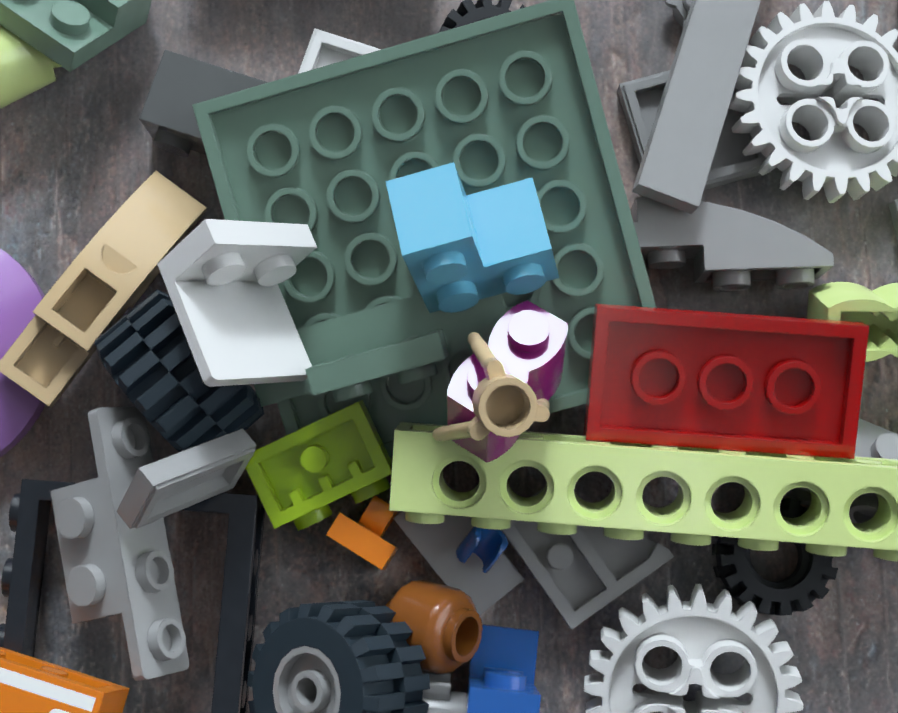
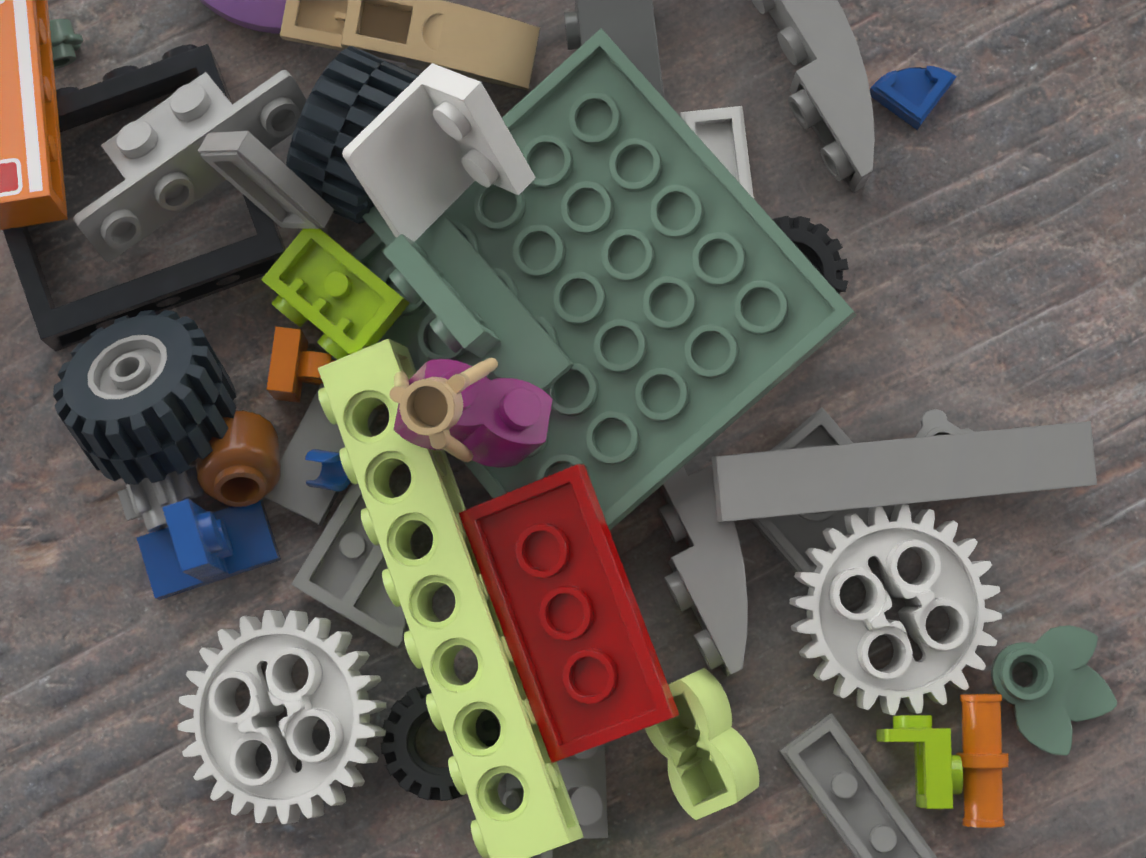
camera: 60 degrees right, 0 degrees up
(471, 243) = (576, 324): medium azure brick -> none

